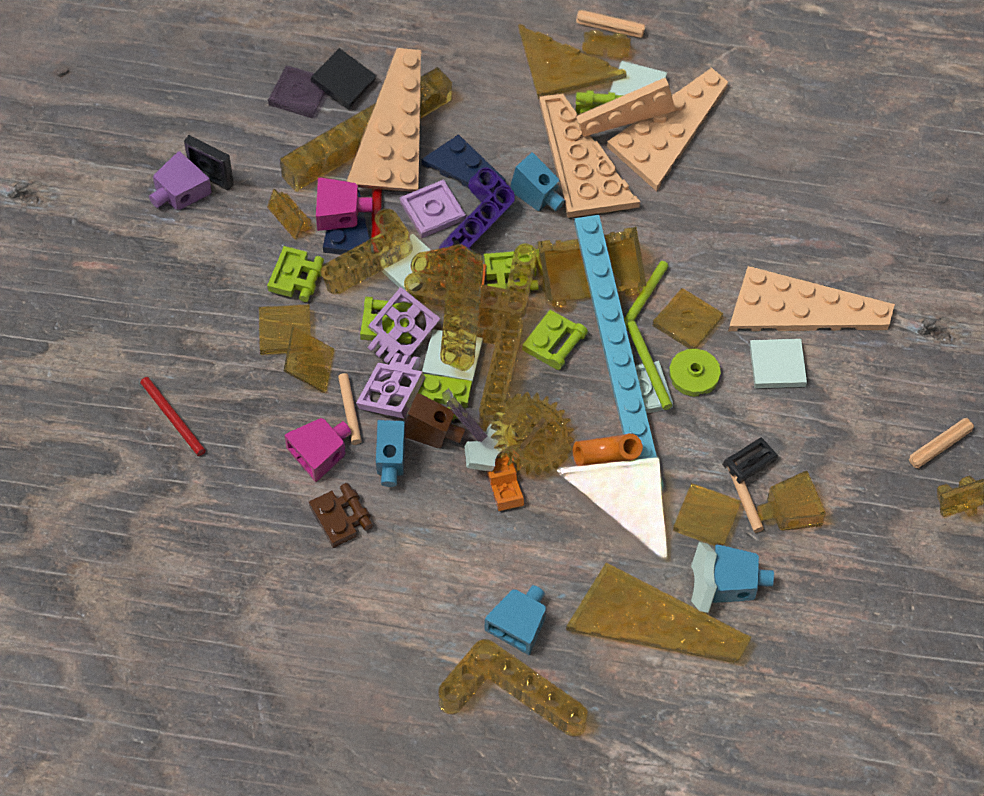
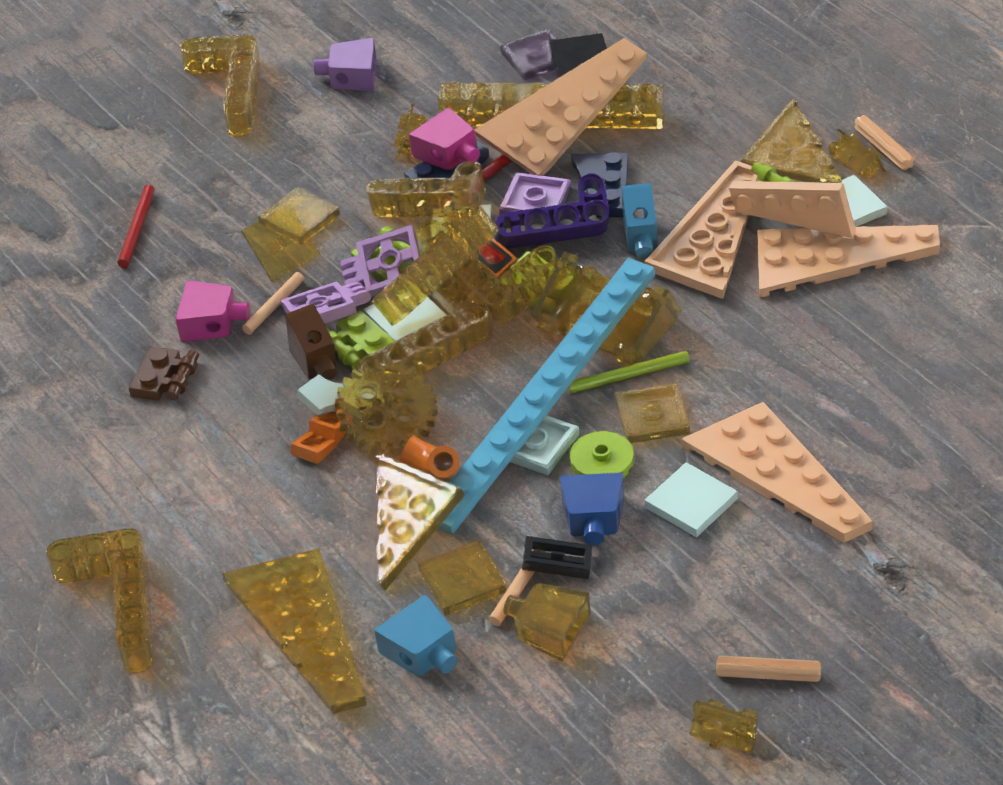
camera: 50 degrees right, 15 degrees down
(86, 225) = (241, 60): none -> clear yellow beam
(210, 161) = (384, 58): black tile -> none
(288, 272) = (351, 175): lime plate -> none
(390, 451) = (254, 345): dark azure torso -> none
(464, 415) = (336, 347): tile -> none
(518, 618) = (194, 541): dark azure torso -> none
(548, 335) = (508, 353): lime plate -> none
(649, 365) = (560, 422): lime bar -> none
(704, 580) = (364, 632): light aqua tile -> none
(732, 410) = (593, 504): none -> blue torso

